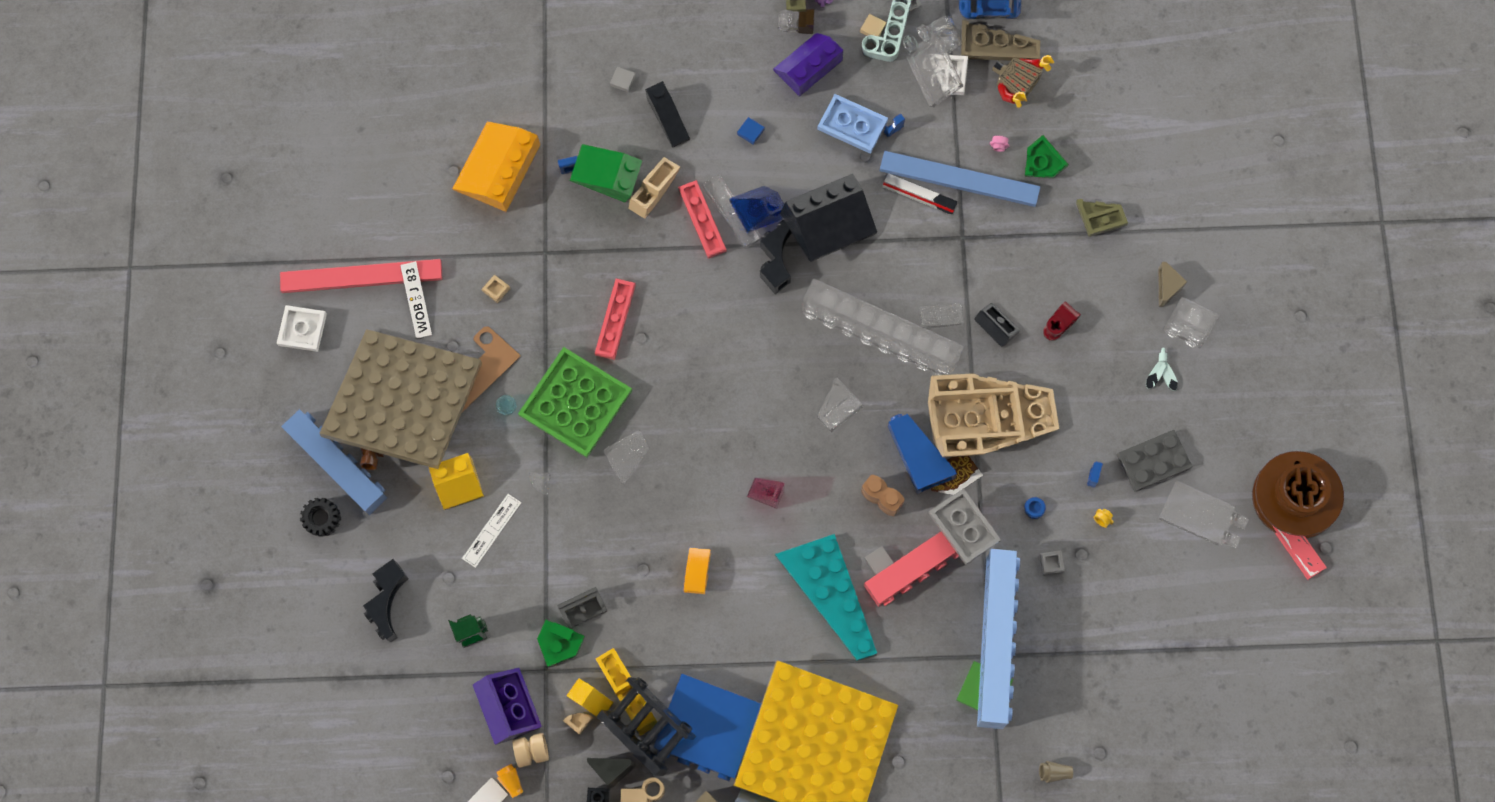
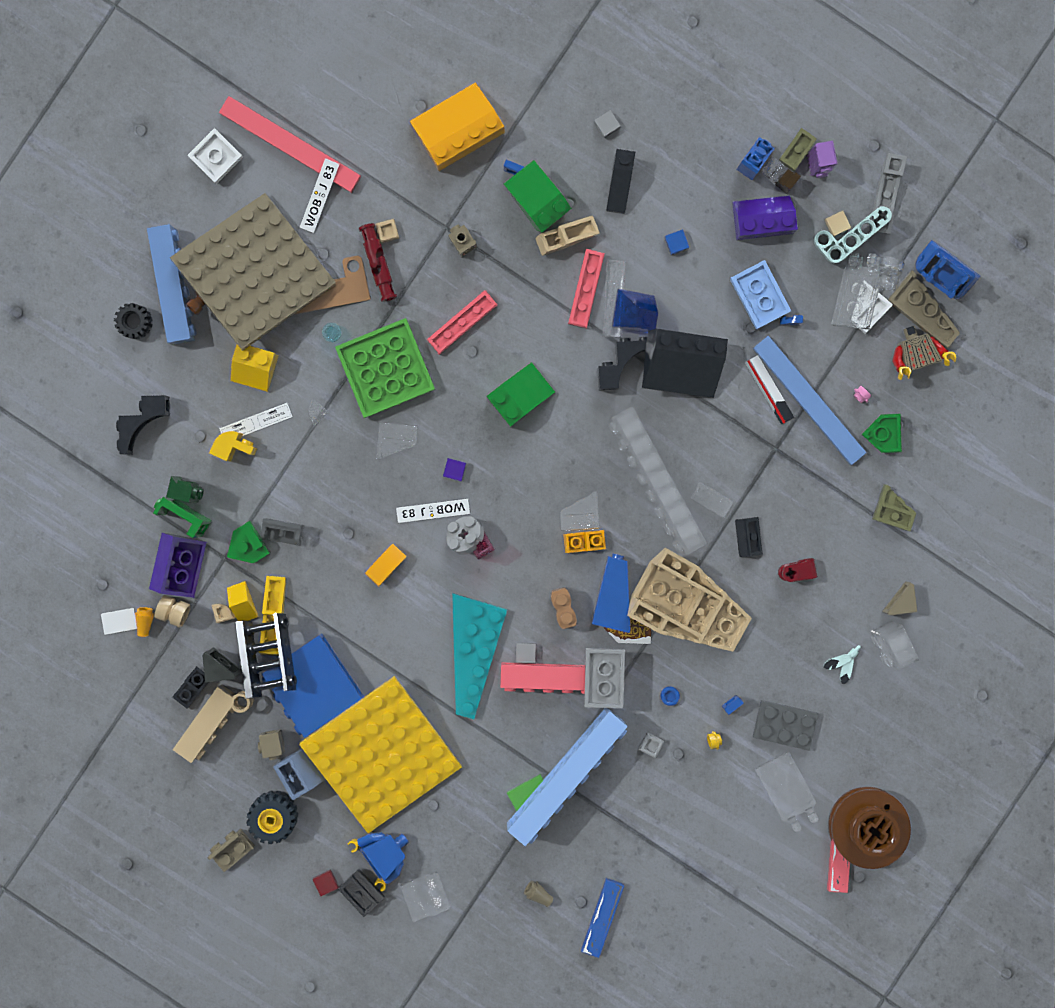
camera: 30 degrees right, 15 degrees up
(479, 563) = (228, 442): none -> yellow brick
(483, 648) = (199, 522): none -> green panel
(499, 313) = (376, 259): none -> dark red piece
(571, 255) = (465, 246): none -> dark tan brick
(698, 446) = (454, 469): none -> dark purple tile
(705, 496) = (433, 510): none -> white sticker
(709, 344) = (520, 394): none -> green slope
(739, 491) = (456, 531): none -> light grey plate
(766, 22) = (755, 158): none -> blue slope
(858, 427) = (584, 541): none -> light orange slope
(1130, 752) = (602, 917): none -> blue tile

